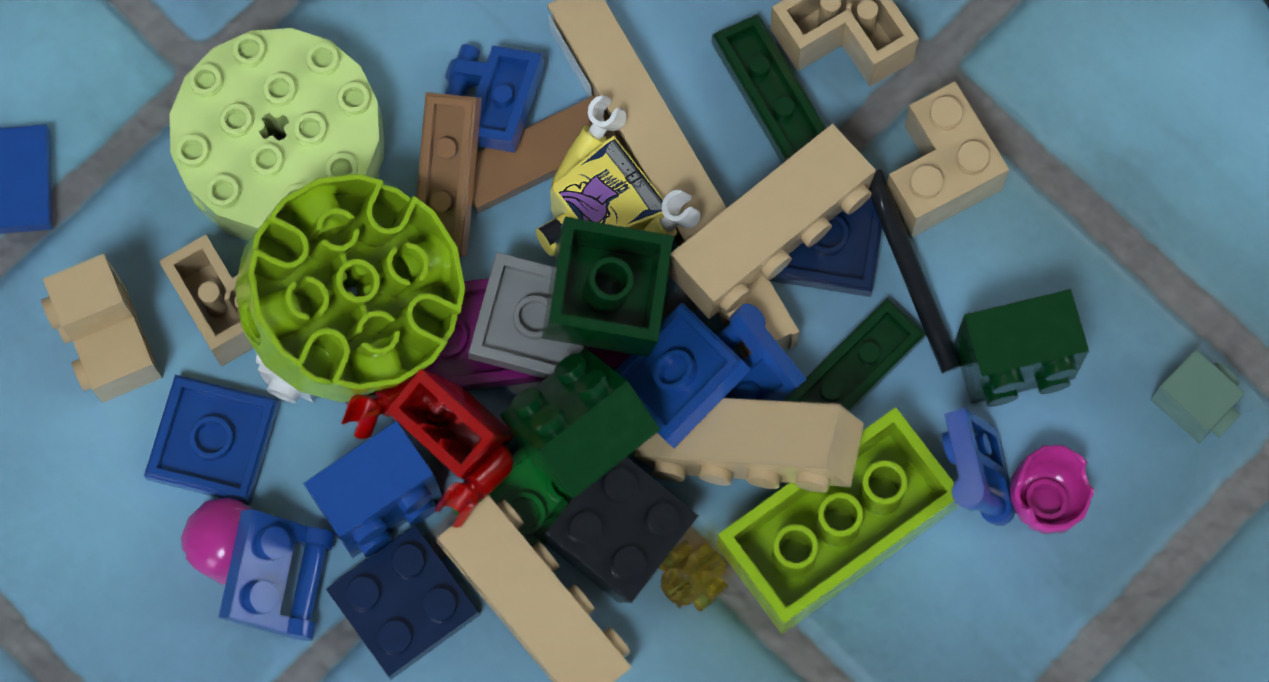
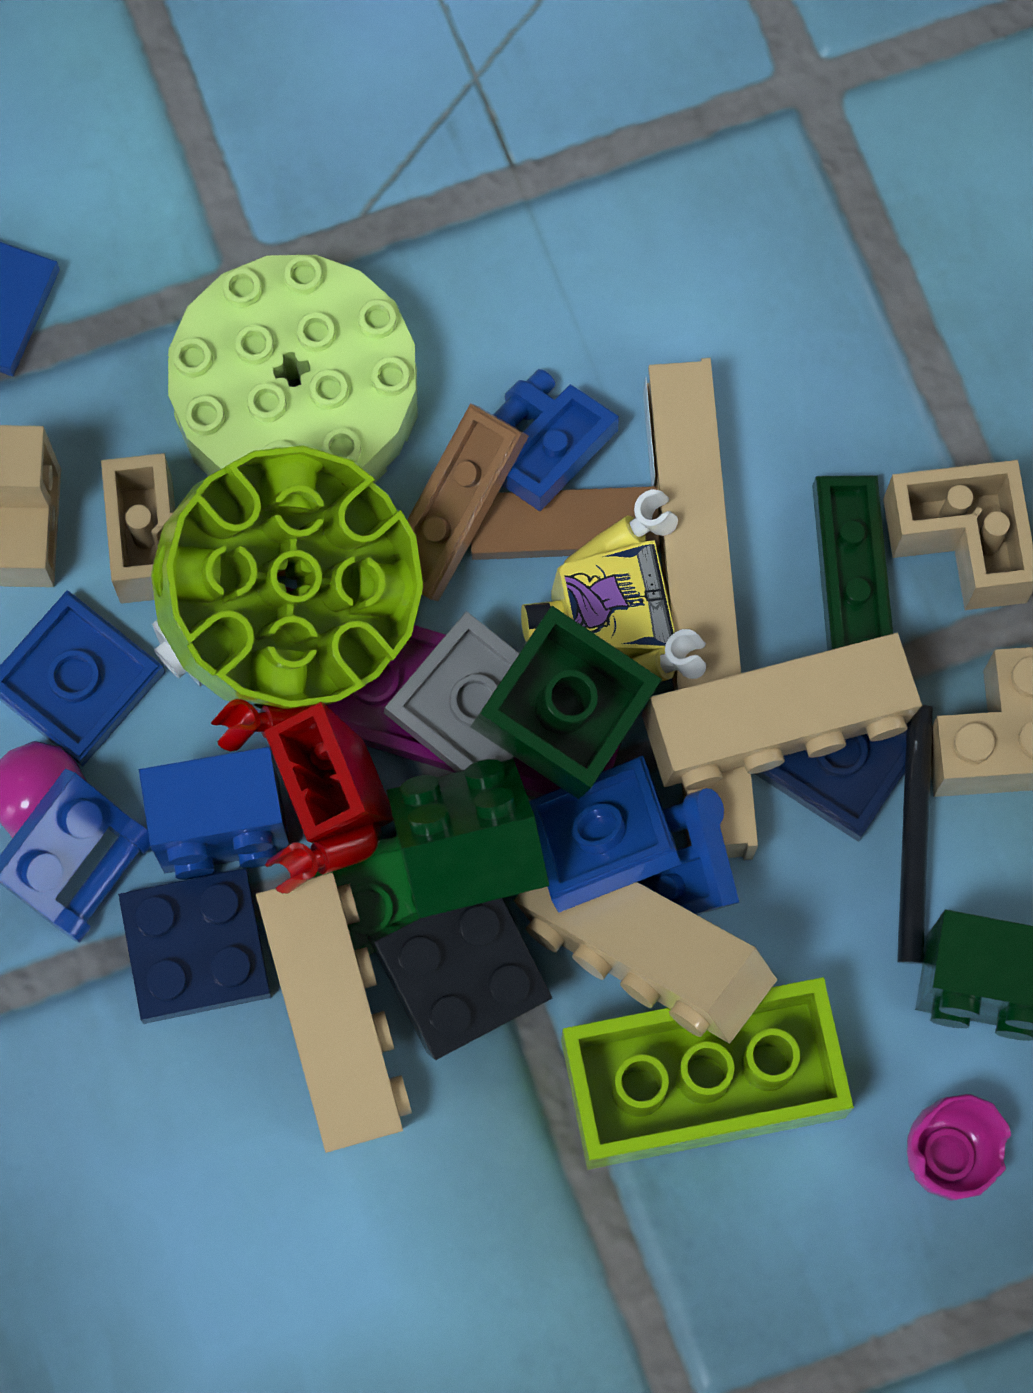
camera: 20 degrees right, 0 degrees up
(693, 575) = (518, 1060): clear yellow gear -> none
(861, 359) = (810, 909): dark green tile -> none
(980, 466) = (892, 1072): blue plate -> none

